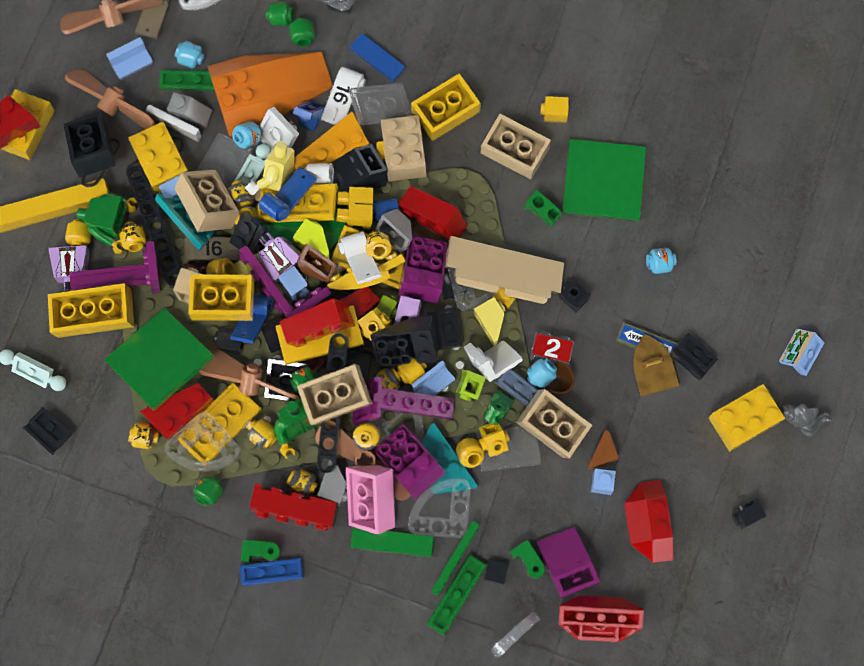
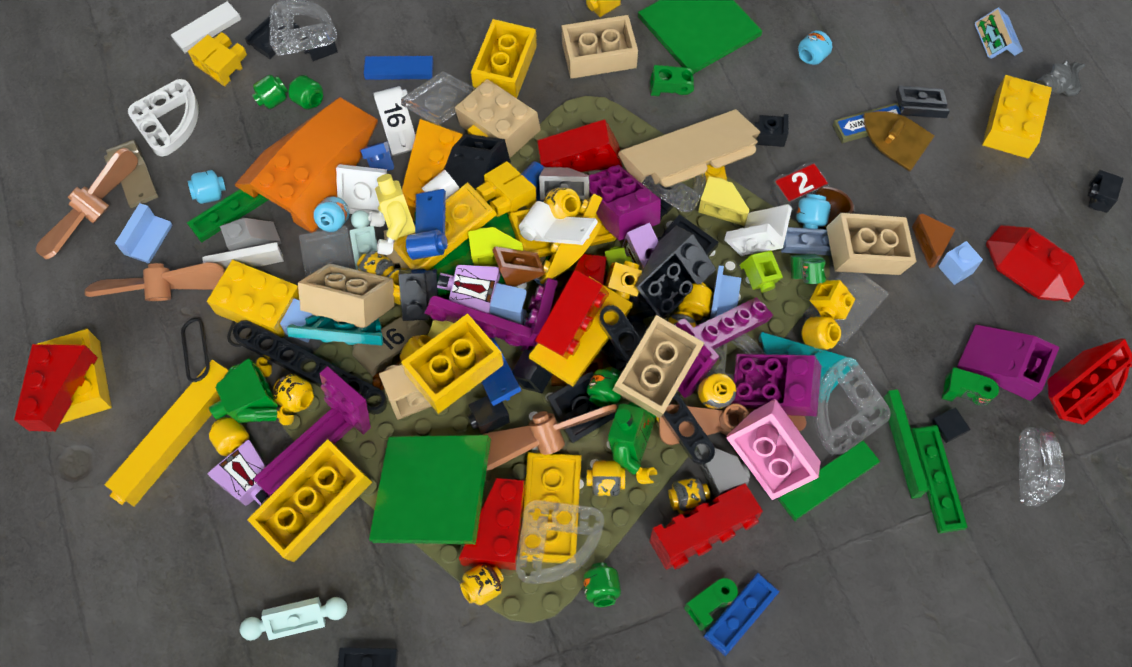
camera: 40 degrees left, 10 degrees down
(89, 144) = (169, 337): black brick -> none

